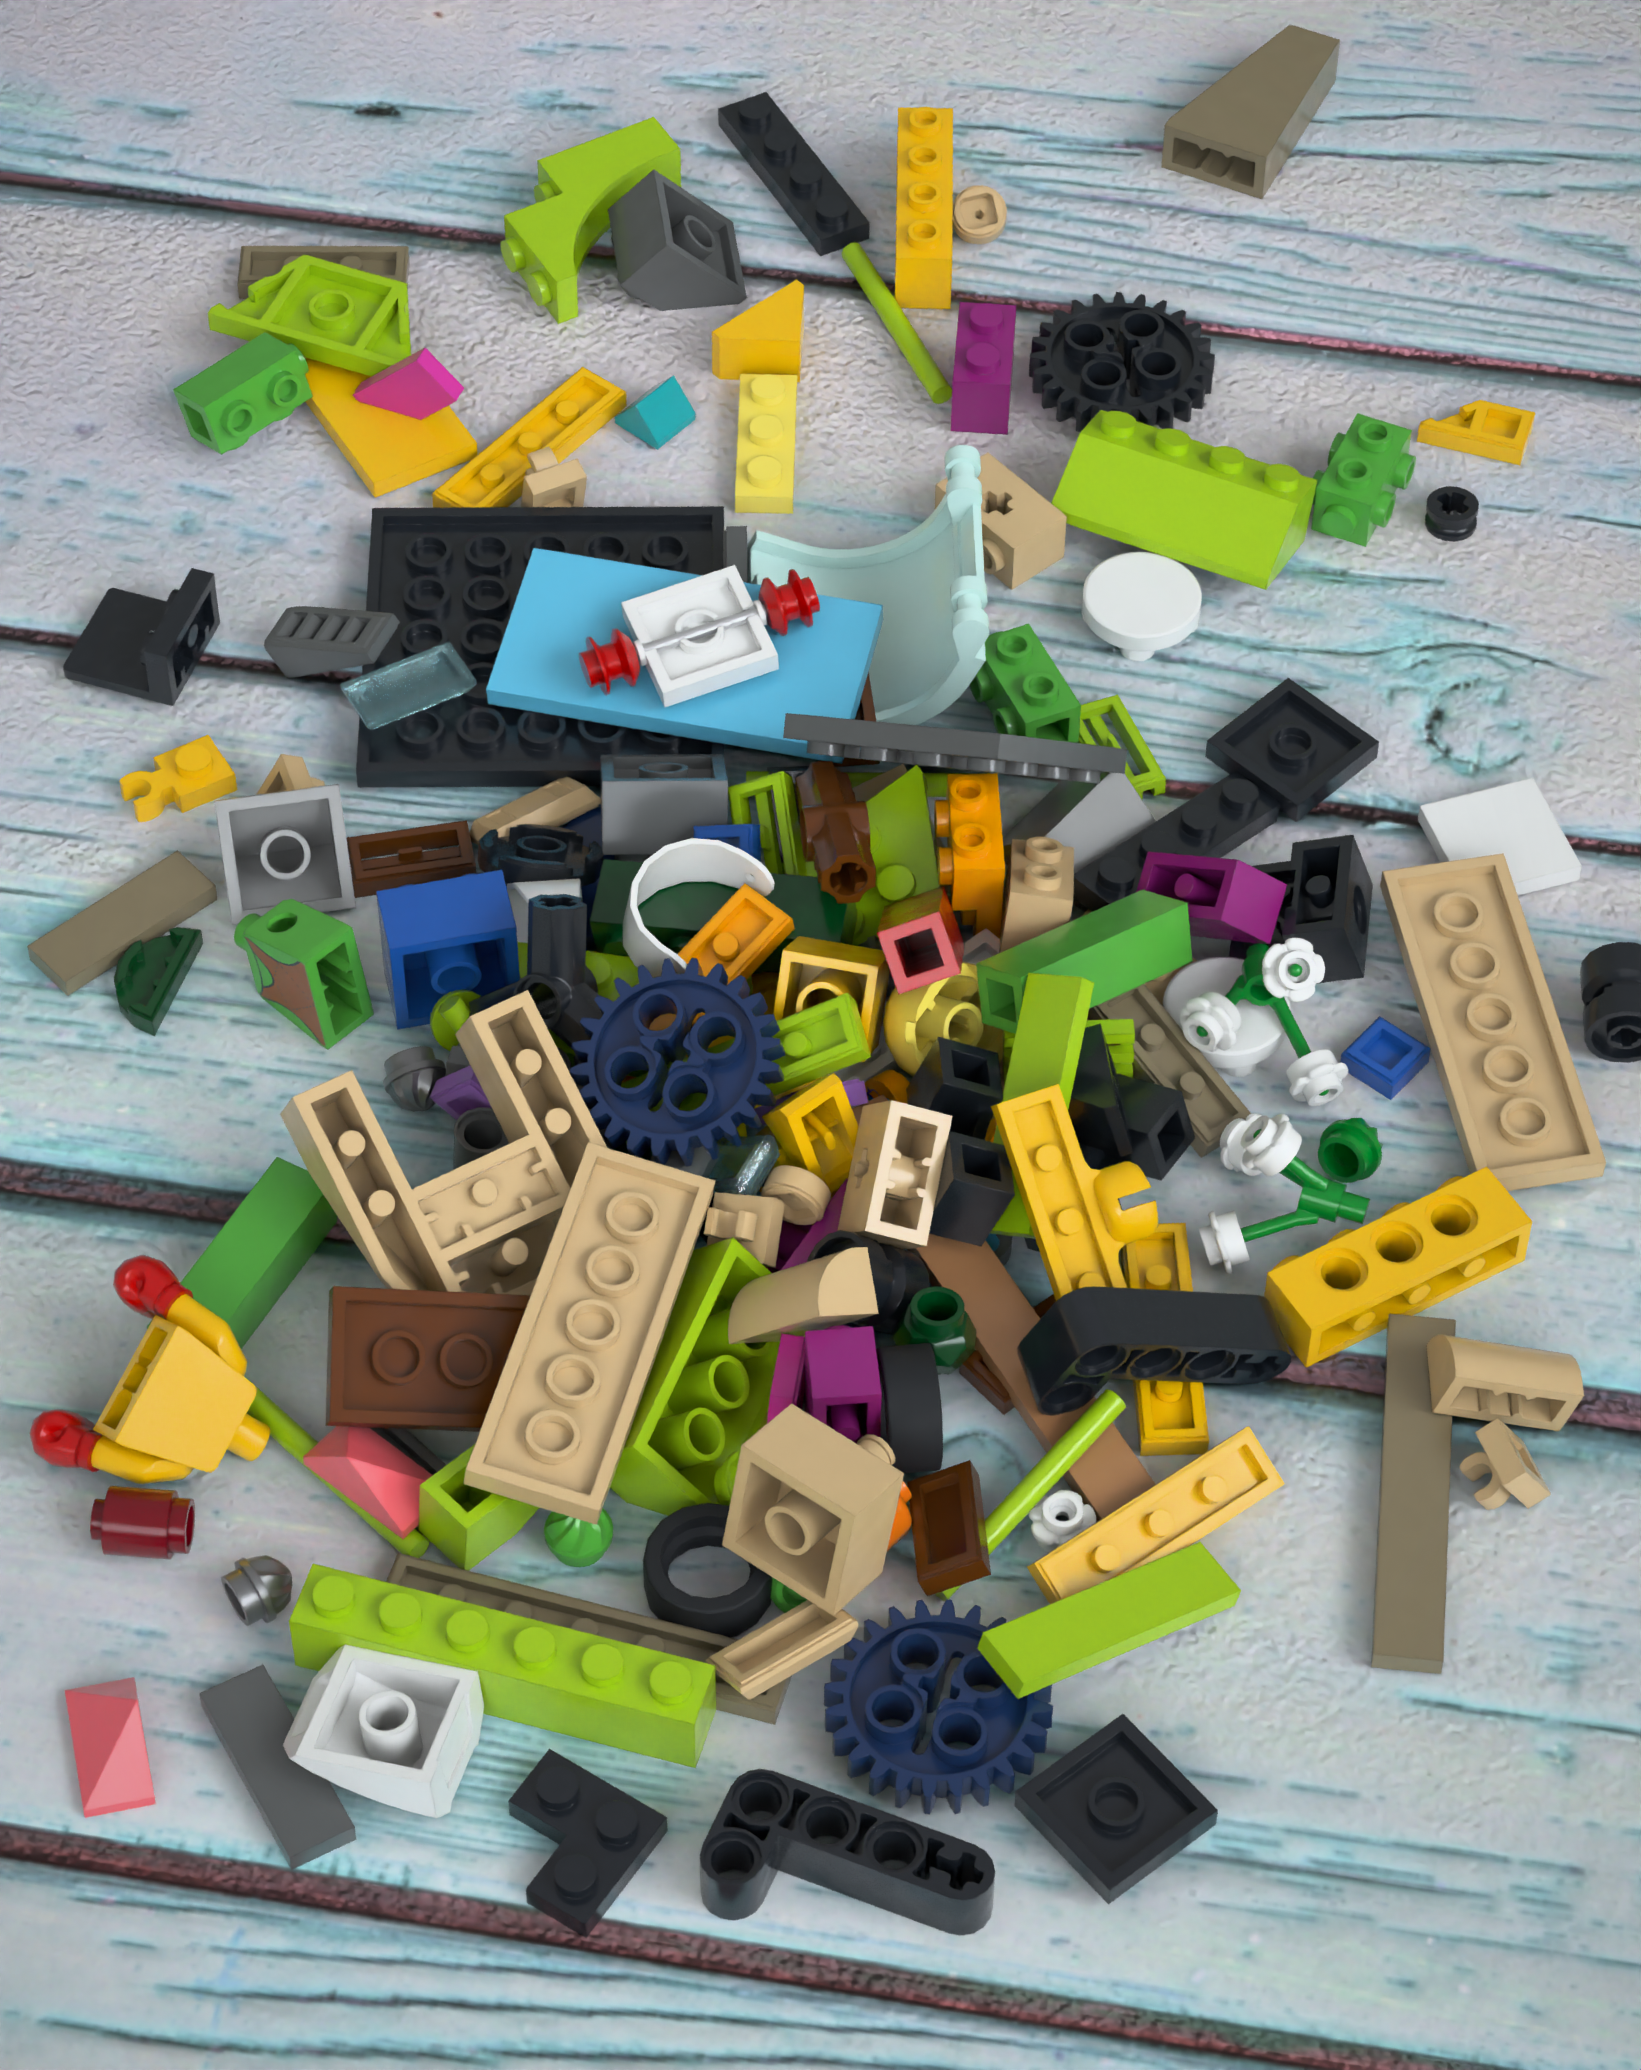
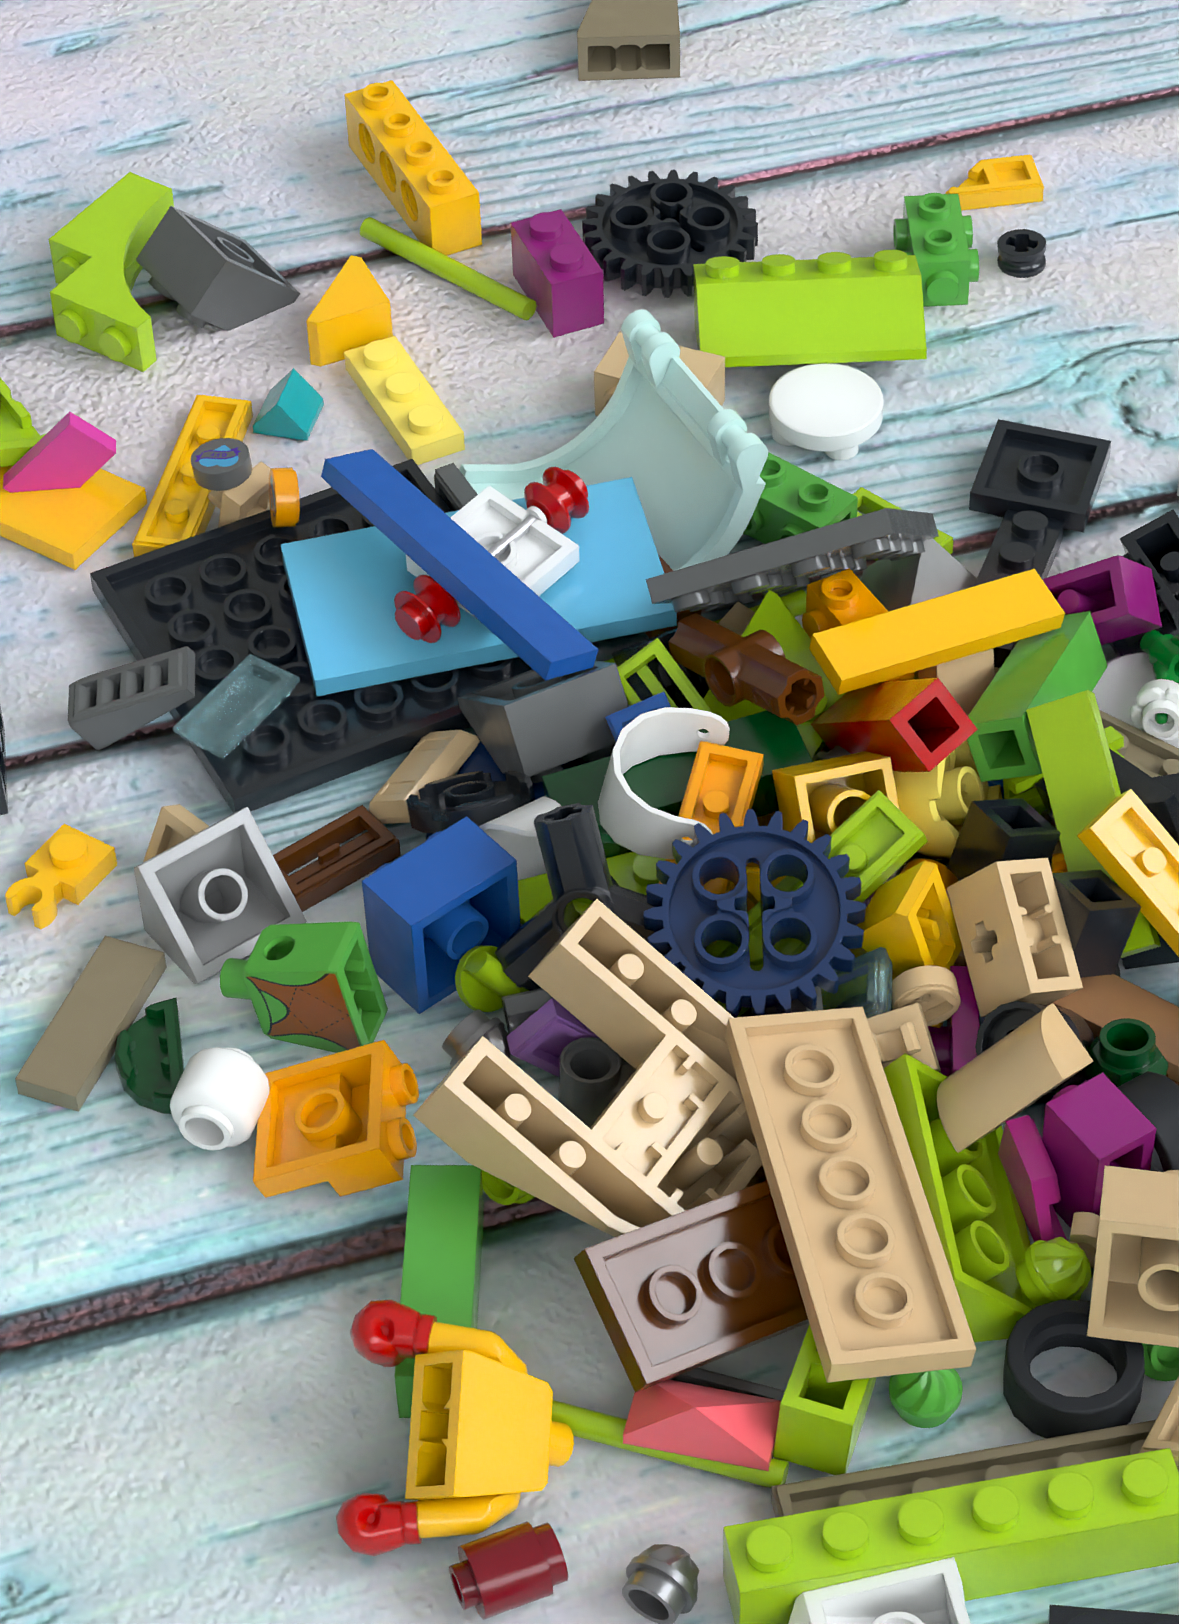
camera: 25 degrees left, 5 degrees down
(172, 1032) = (219, 1098): none -> white head
(242, 1088) = (336, 1123): none -> light orange plate
(536, 448) = (221, 464): none -> dark grey tile
(573, 501) = (284, 497): none -> light orange tile
(650, 631) = (460, 564): none -> blue tile
(793, 173) = (271, 184): black plate -> none
(979, 214) = (468, 155): tan tile -> none
(1021, 866) = (936, 631): none -> yellow tile

